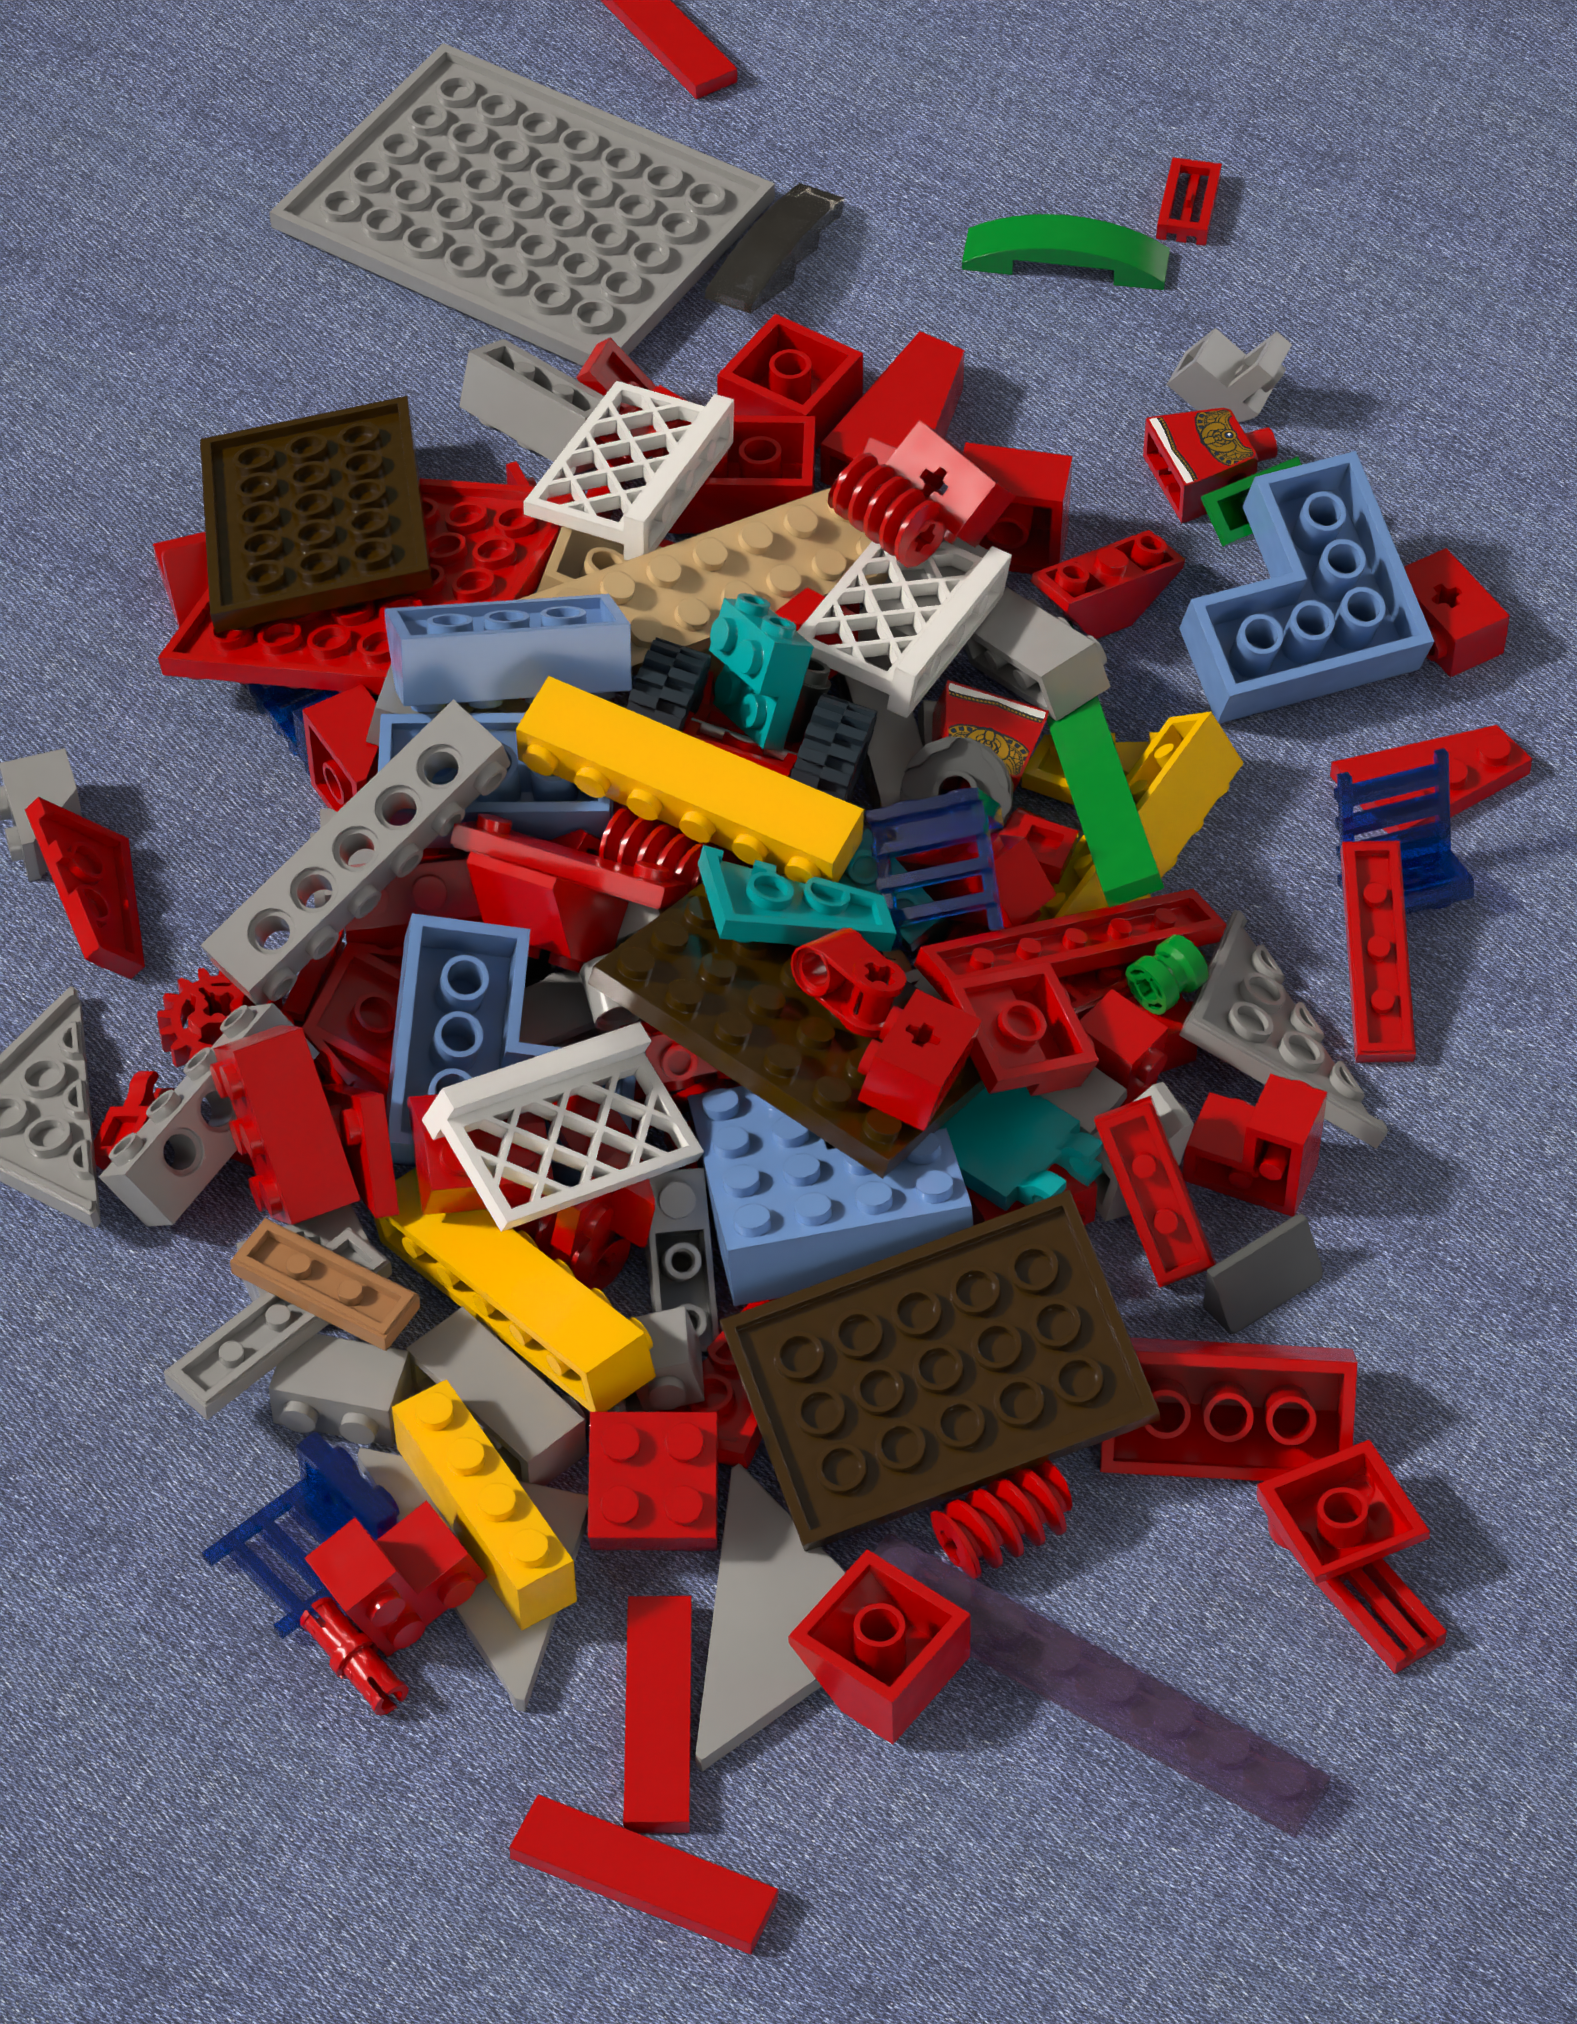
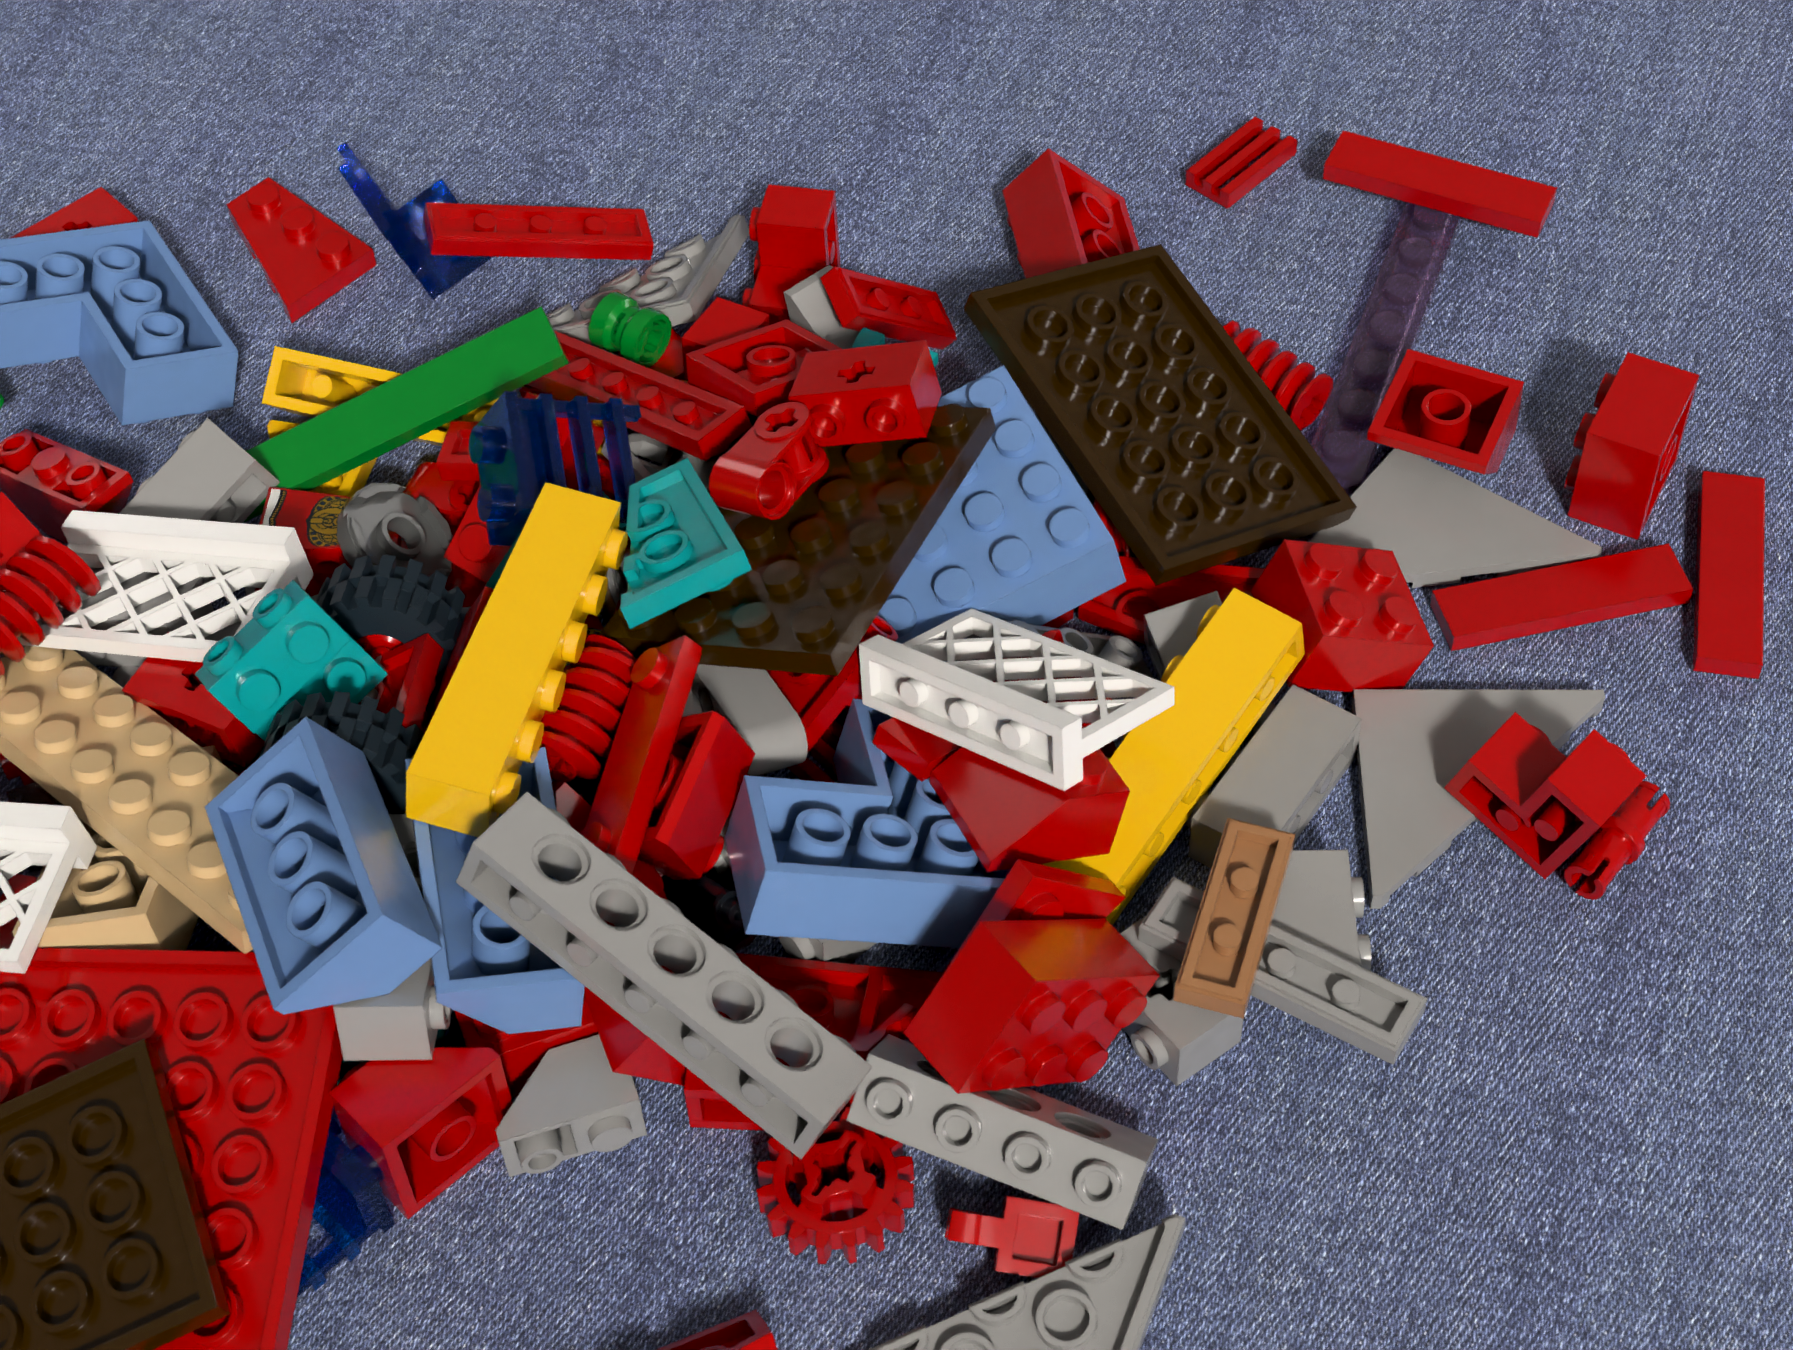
camera: 100 degrees left, 0 degrees up
(322, 1504) = (1467, 883): clear blue plate -> none
(484, 1504) = (1423, 743): yellow brick -> none
(798, 1796) = (1629, 444): none -> red brick
(1259, 1756) = (1440, 183): none -> red tile
(1262, 1275) = (920, 268): dark grey slope -> none
(1340, 1512) = (1181, 171): red slope -> none

